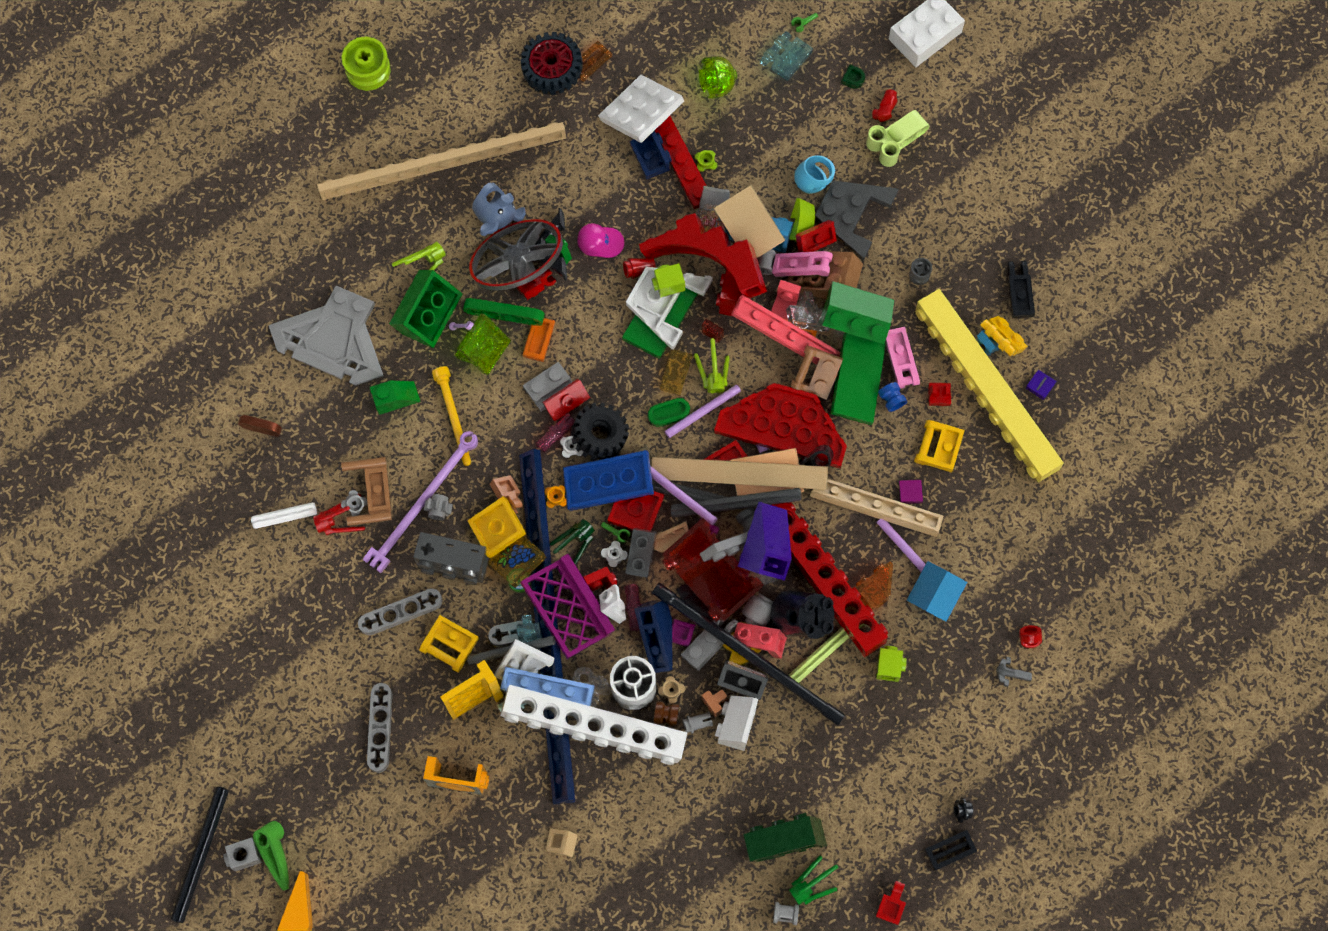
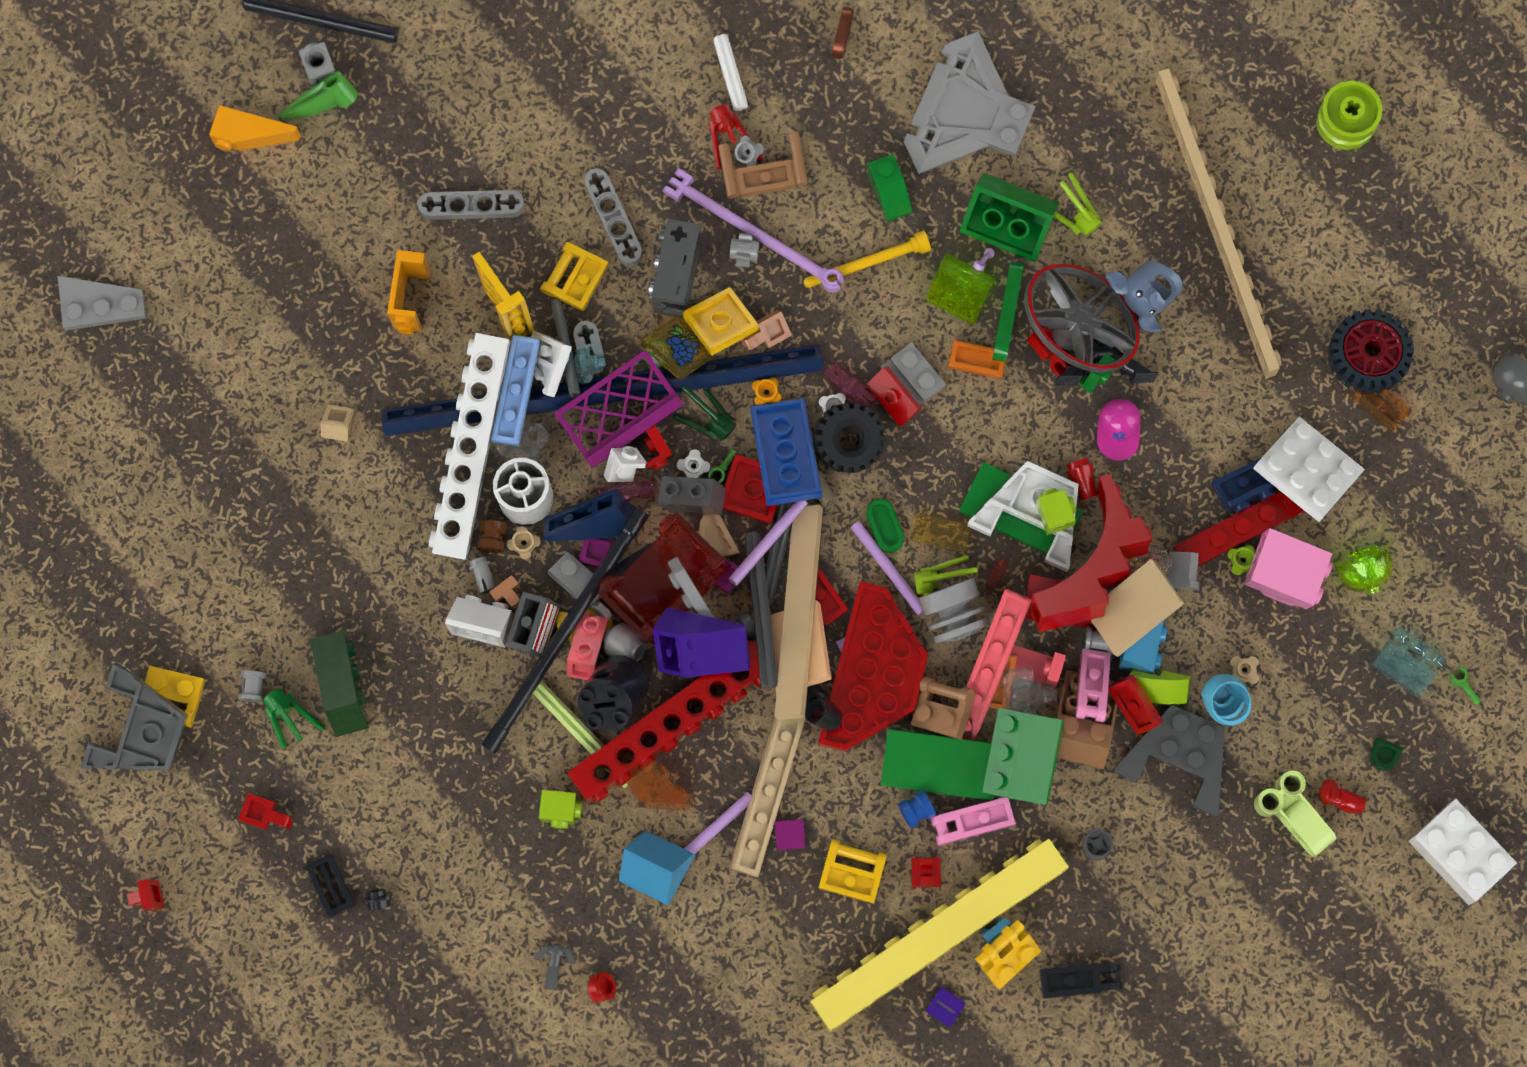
camera: 90 degrees right, 5 degrees up
(717, 126) = (1289, 569): none -> bright pink brick
(742, 358) = (954, 611): none -> light grey wheel
(785, 160) = (1250, 664): none -> tan plate

